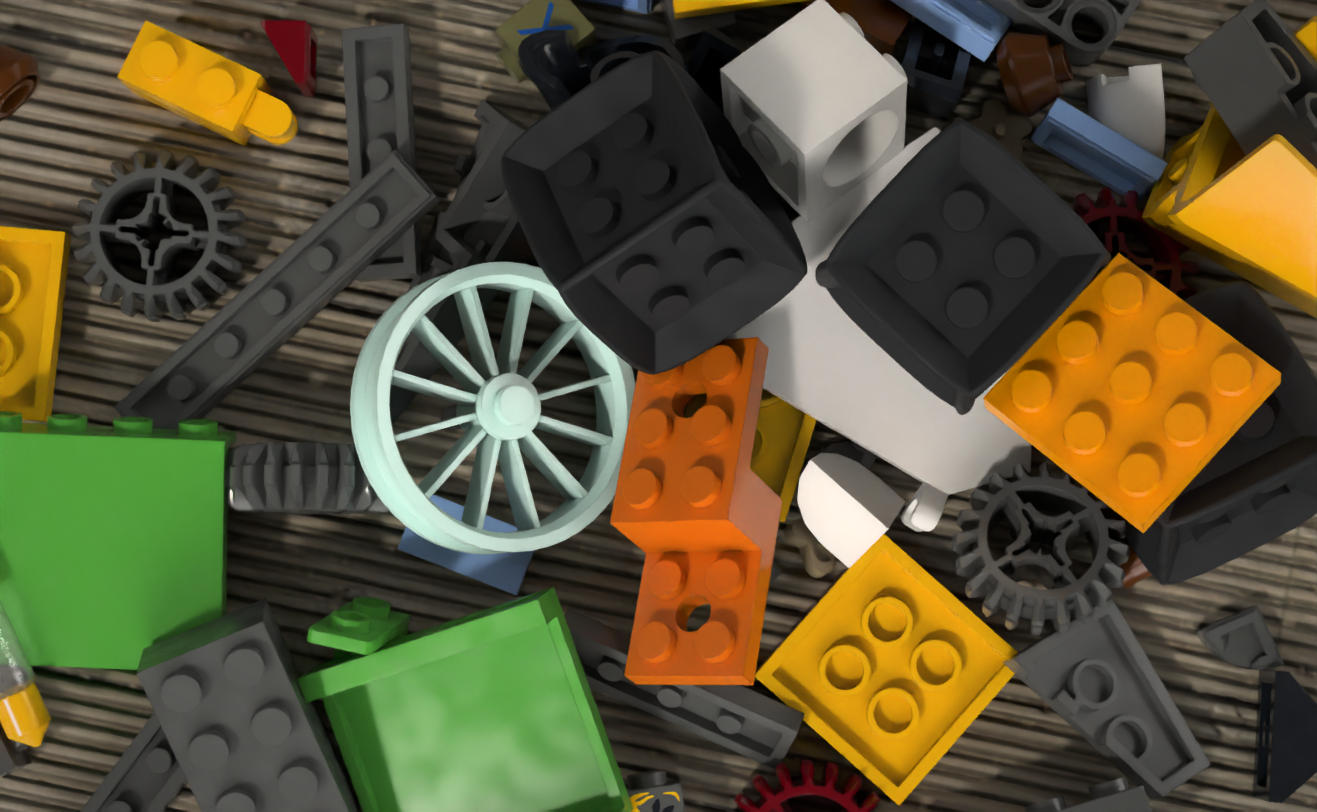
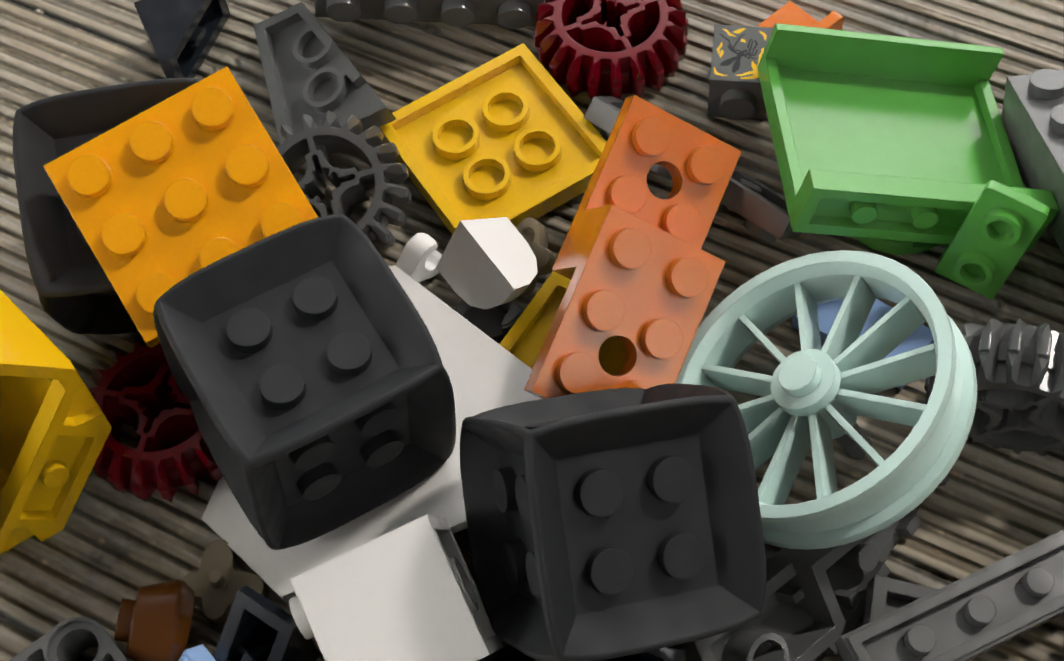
camera: 155 degrees left, 25 degrees down
(1097, 150) = (126, 529): light blue tile -> none
(1131, 105) = (78, 566): white brick -> none

